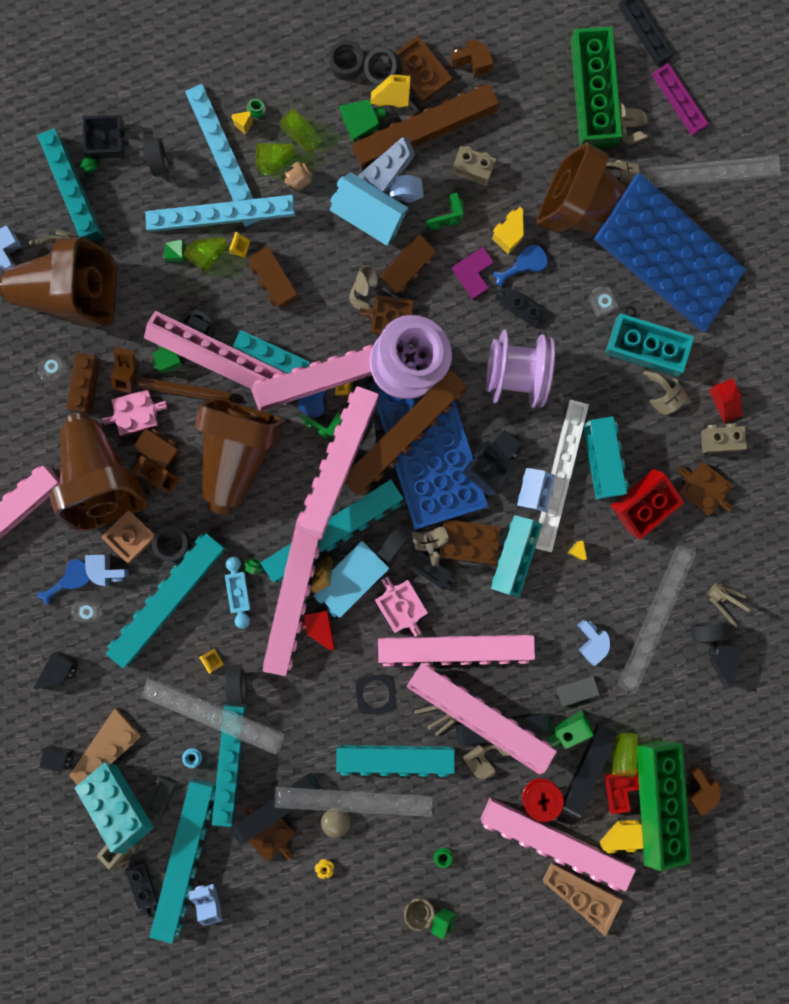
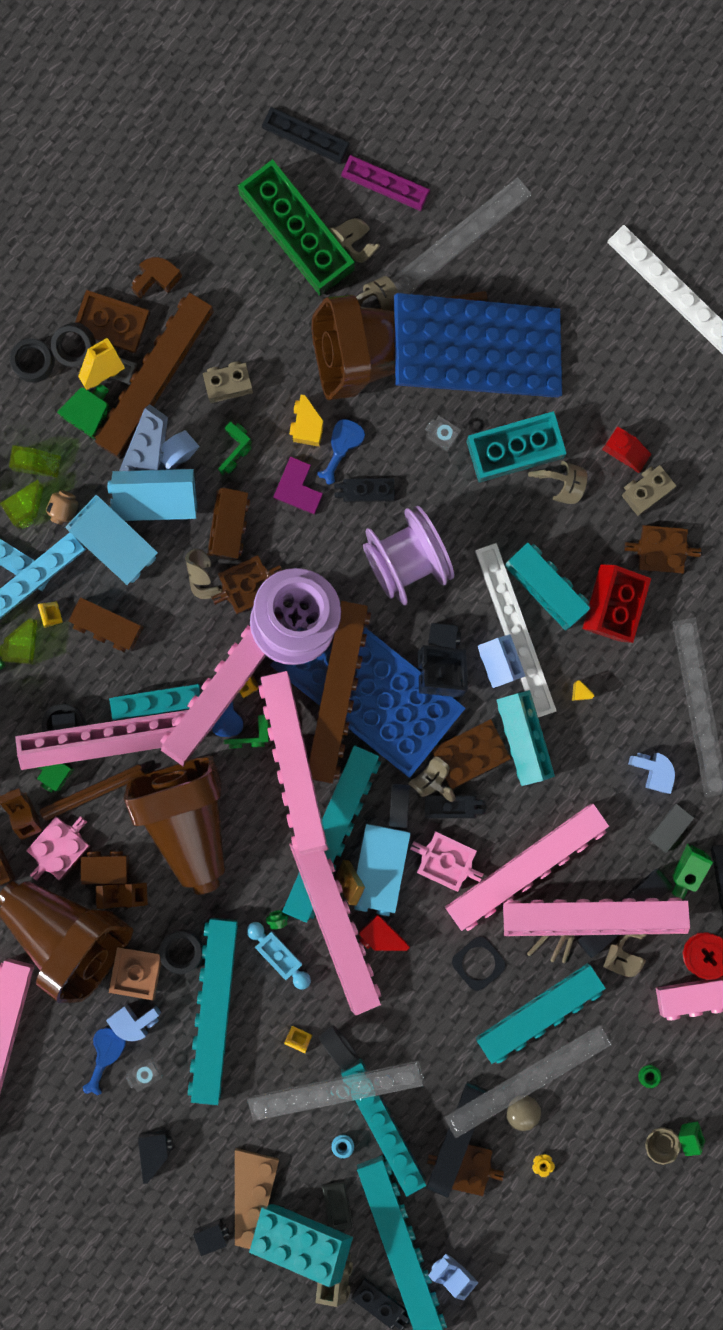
camera: 35 degrees left, 0 degrees up
(317, 220) = (112, 540): none -> medium azure brick

